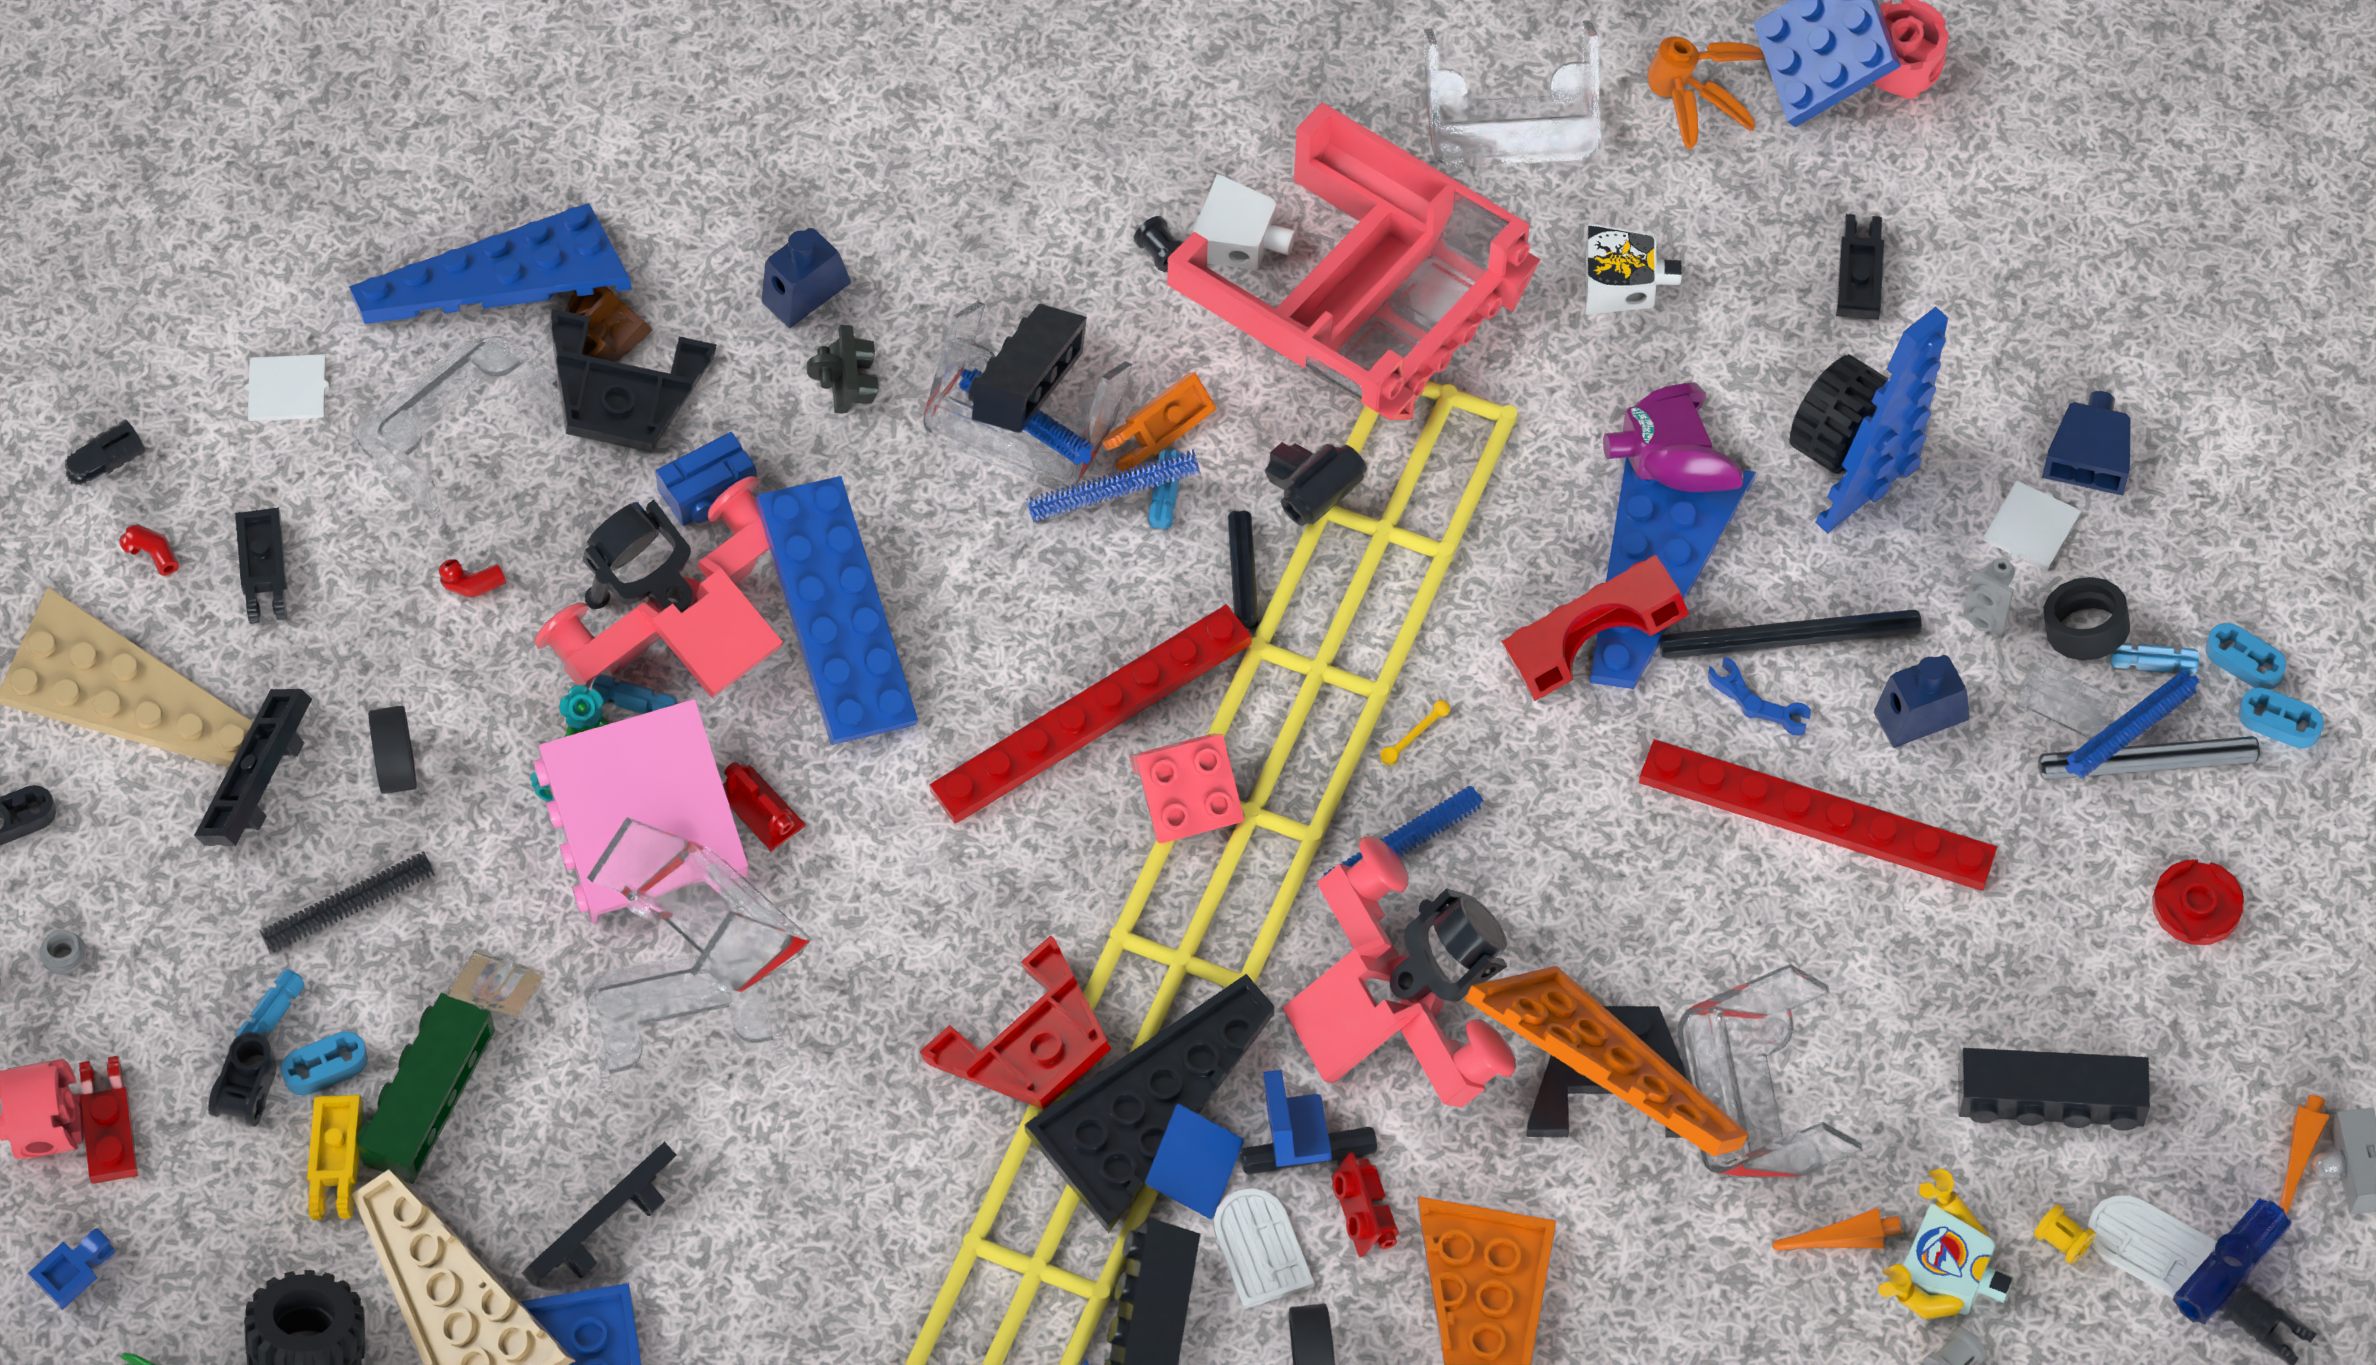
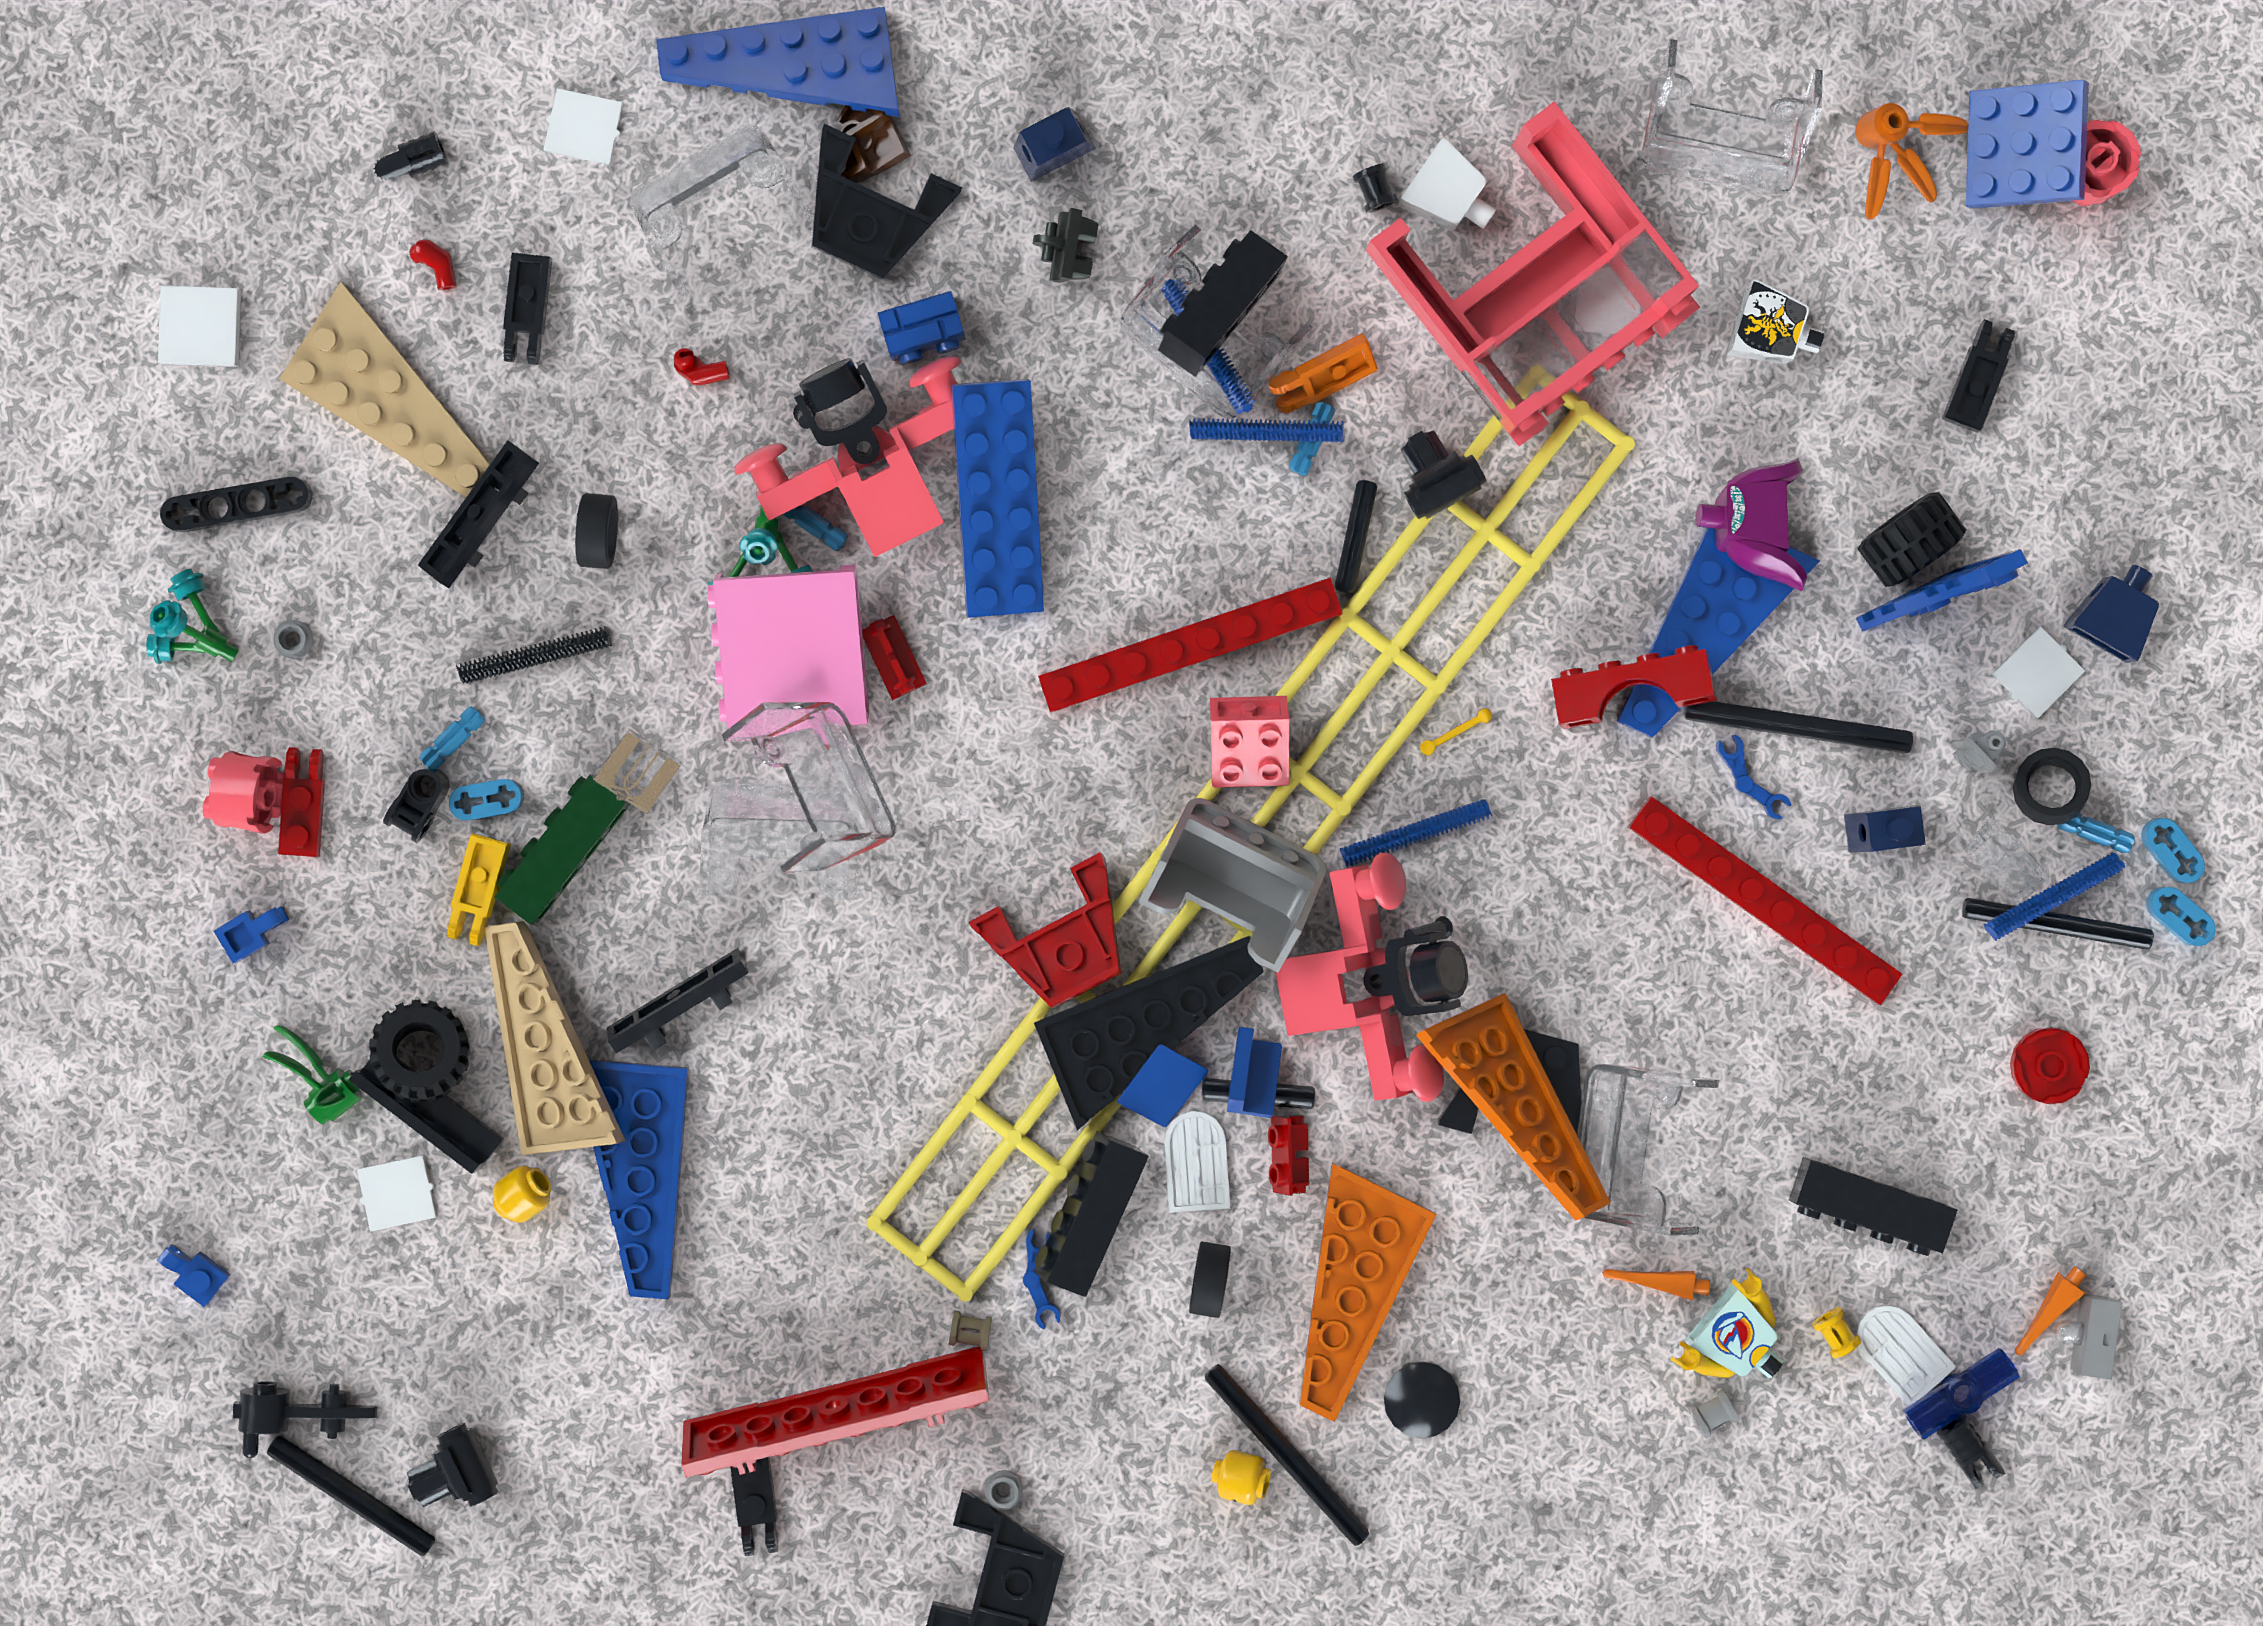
camera: 15 degrees right, 30 degrees up
(1211, 915) = (1239, 875): none -> light grey windscreen

